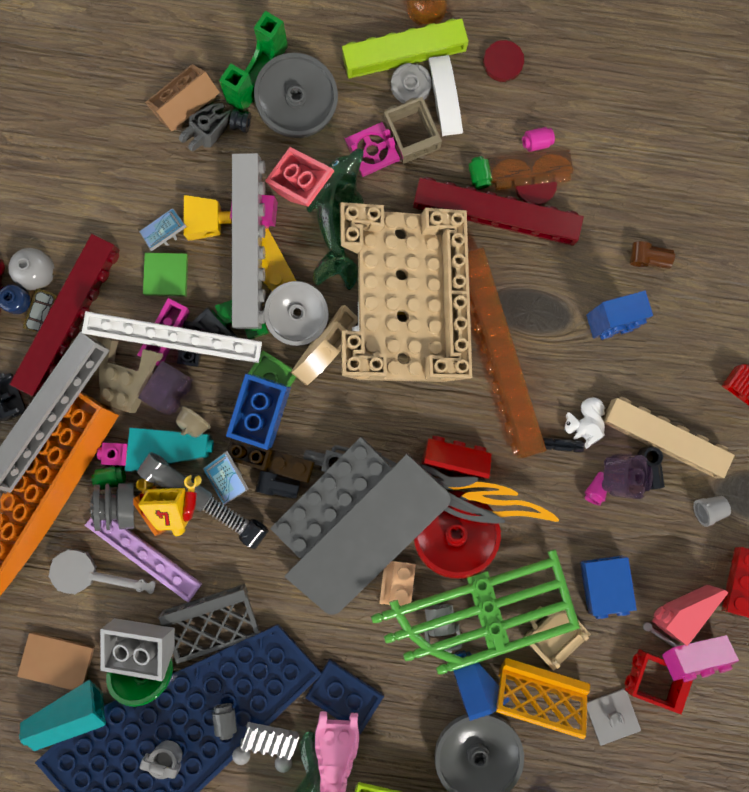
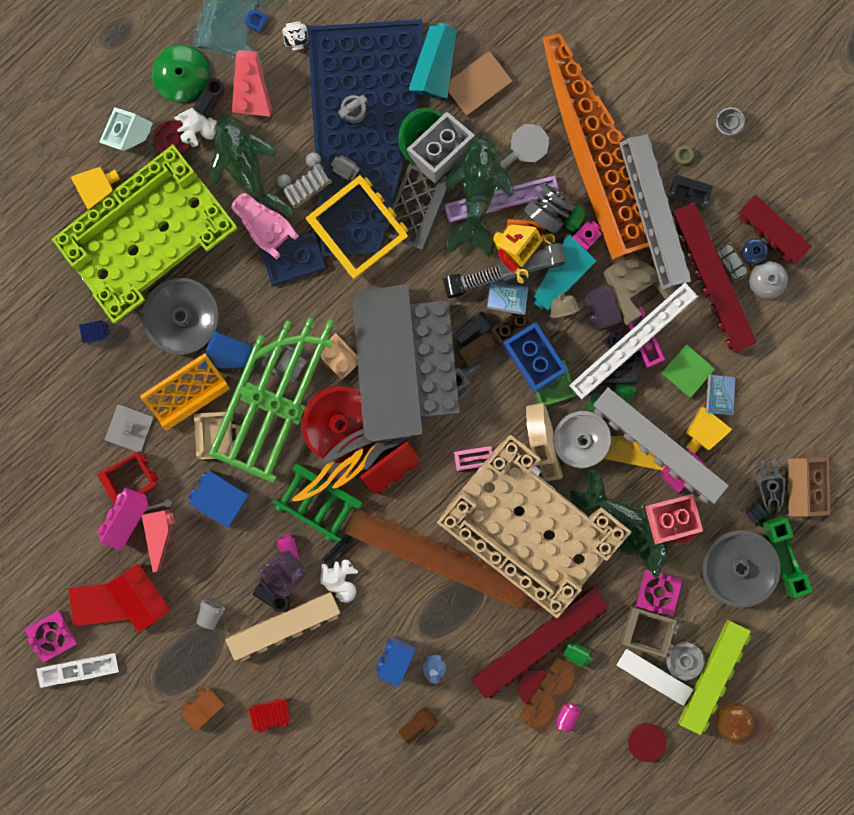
camera: 135 degrees right, 5 degrees up
(136, 589) = (480, 177): none -> clear green animal
(234, 647) = (388, 213): none -> yellow window
(401, 405) = (457, 460): none -> bright pink tile
(526, 531) = (333, 494): none -> green fence
(593, 280) = (434, 668): none -> medium blue rock

